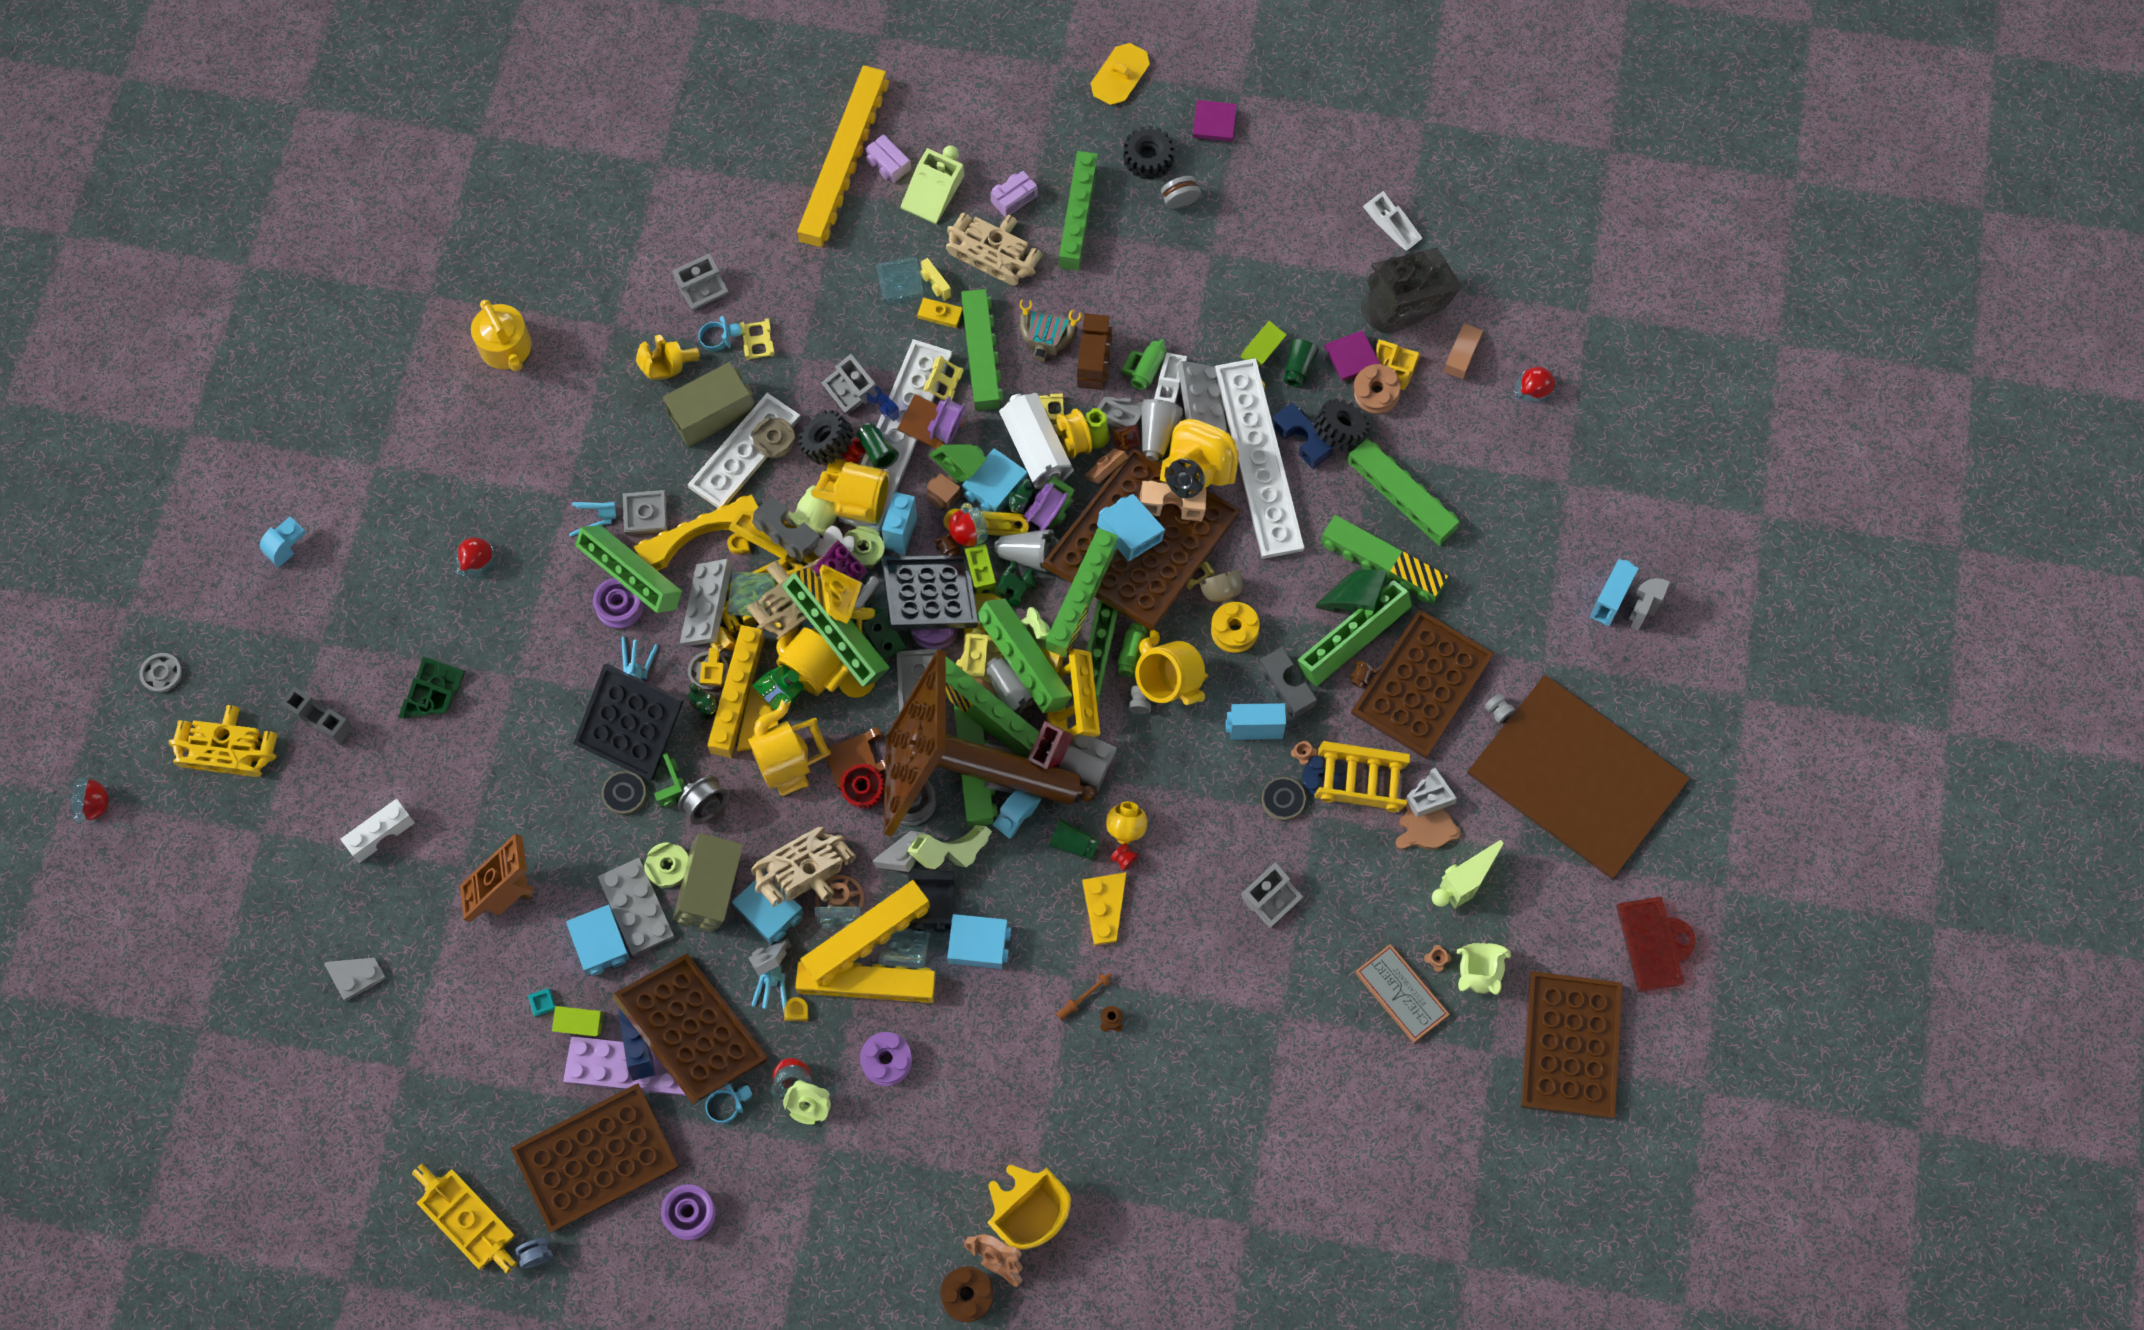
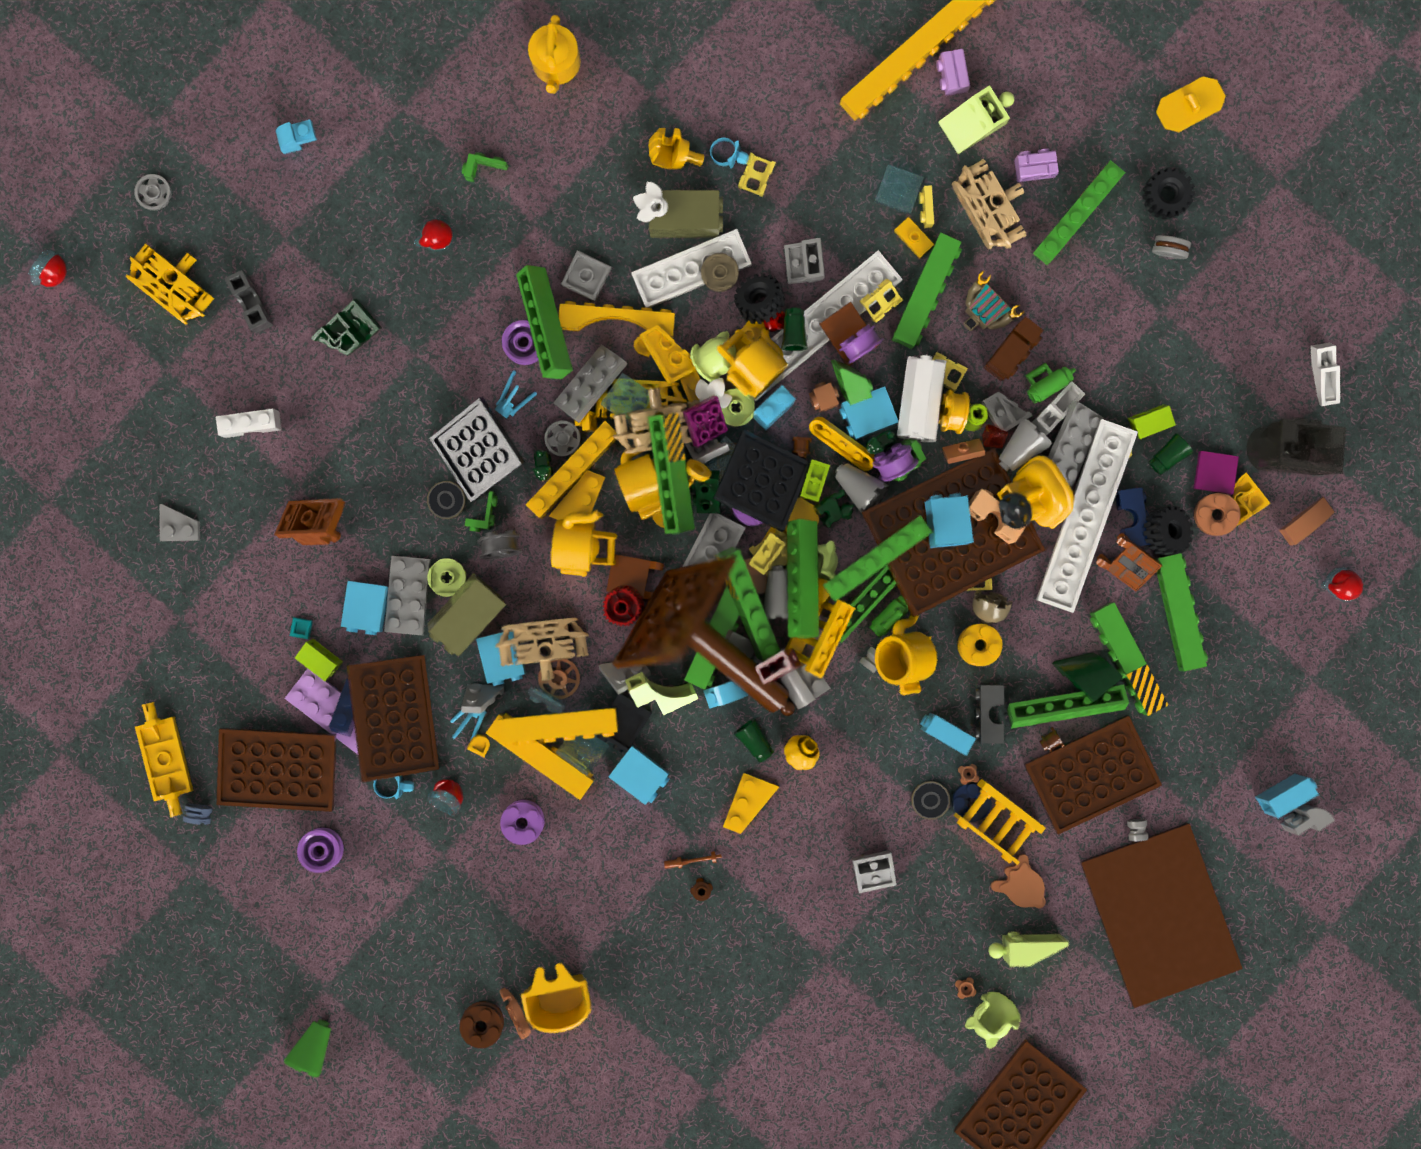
camera: 30 degrees right, 20 degrees up
(483, 465) = (469, 169): none -> bright green bracket
(605, 510) = (557, 255): medium azure plant -> none
(668, 406) = (649, 201): none -> white plate
(700, 282) = (739, 97): light grey brick -> none
(712, 671) = (562, 443): yellow plate -> none
(779, 685) = (604, 492): green torso -> none
(797, 541) = (683, 379): dark grey arch -> none
(815, 1096) = (446, 822): yellowish green plate -> none
(839, 593) = (689, 449): yellow wing -> none
(887, 406) = (822, 300): clear blue plate -> none
(968, 526) = (825, 443): red piece -> none
(1124, 856) = (784, 775): red wheel -> none
(1214, 120) = (1240, 195): magenta tile -> none
(1330, 475) = (1132, 565): none -> dark orange flag
(1402, 993) = (922, 997): light grey tile -> none
(1430, 795) = (1040, 866): light grey wing -> none
(1654, 943) = (1130, 1074): clear red plate -> none

